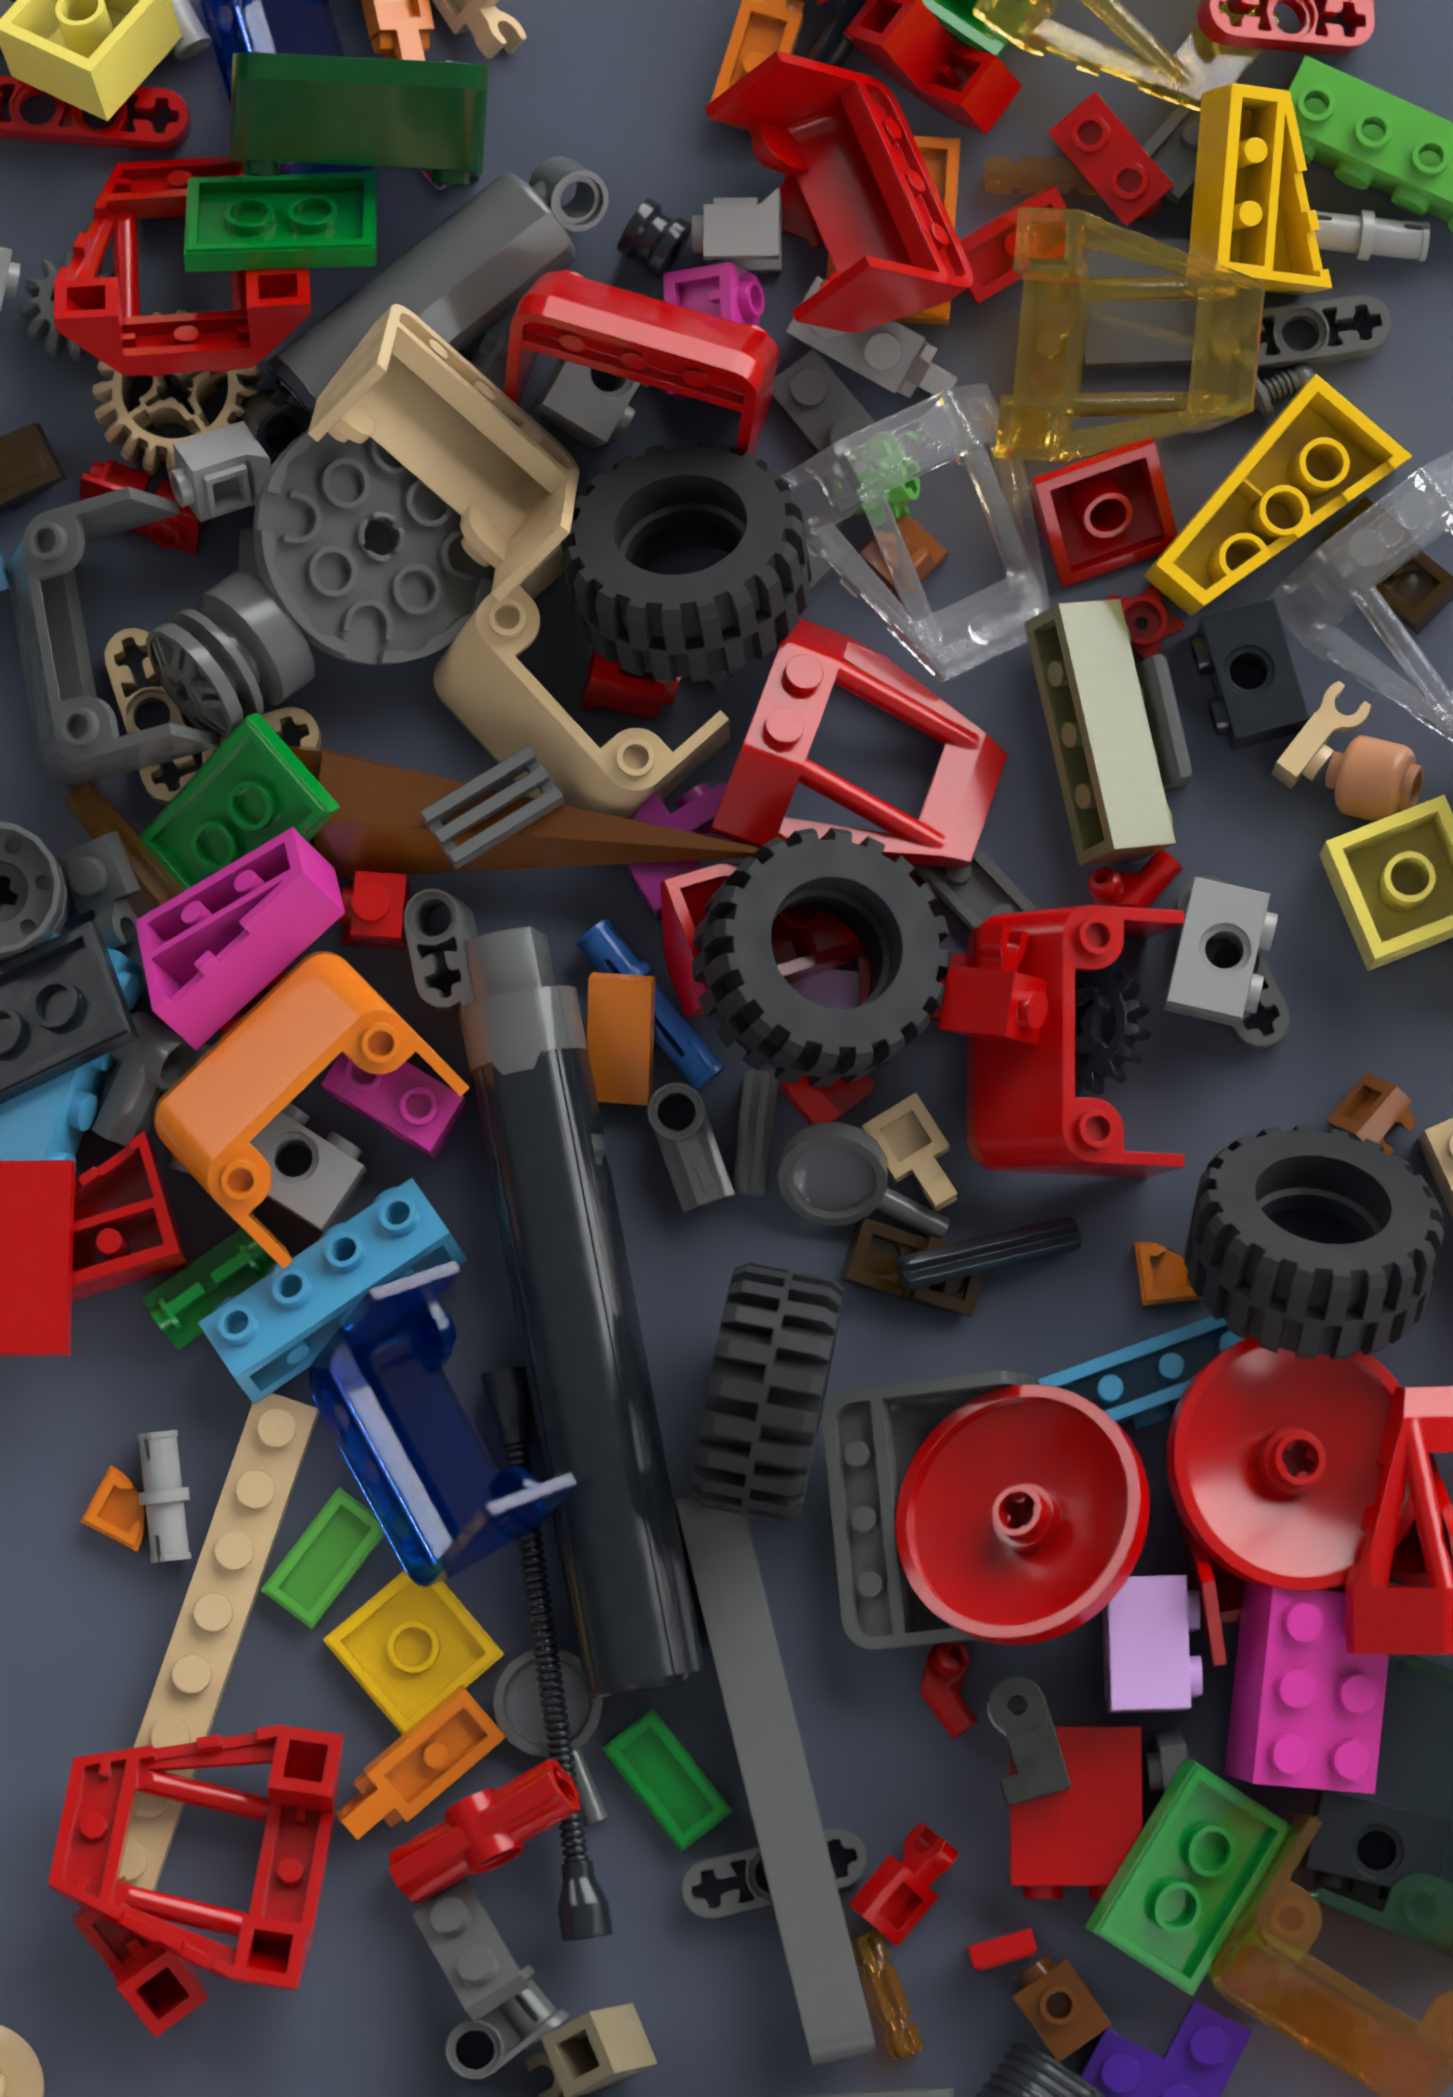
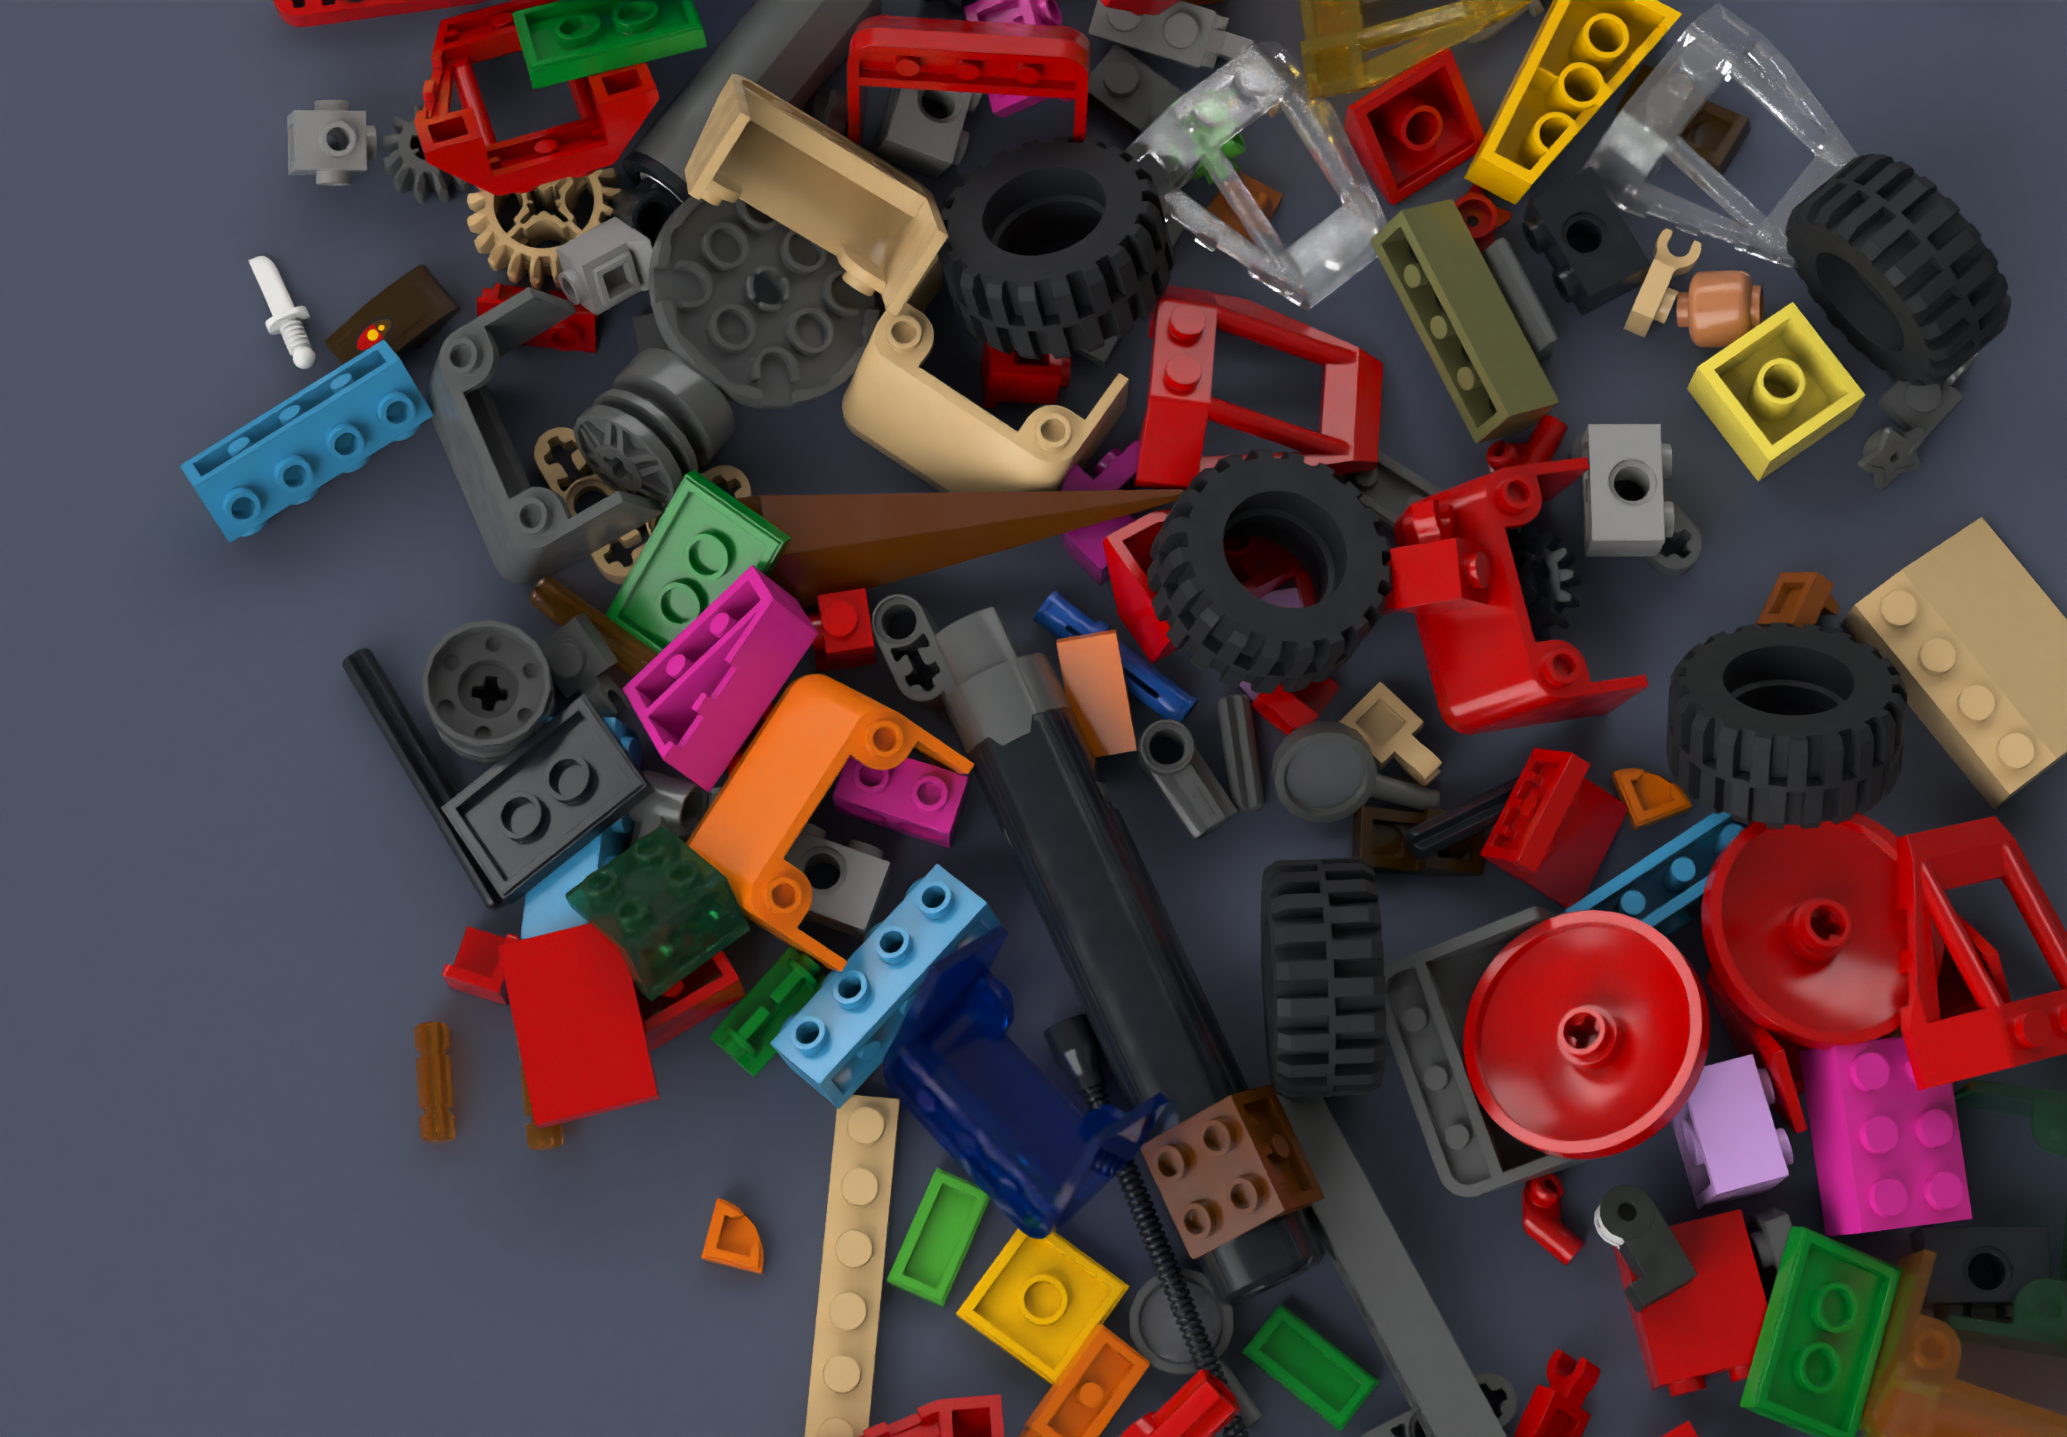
camera: 20 degrees left, 5 degrees down
(113, 1163) = (660, 910): none -> clear green bracket
(163, 1496) = (774, 1214): light grey pin -> none
(481, 786) = (947, 461): dark grey tile -> none
(627, 1566) = (1231, 1170): none -> reddish brown bracket
(1055, 1289) = (1555, 827): none -> red bracket

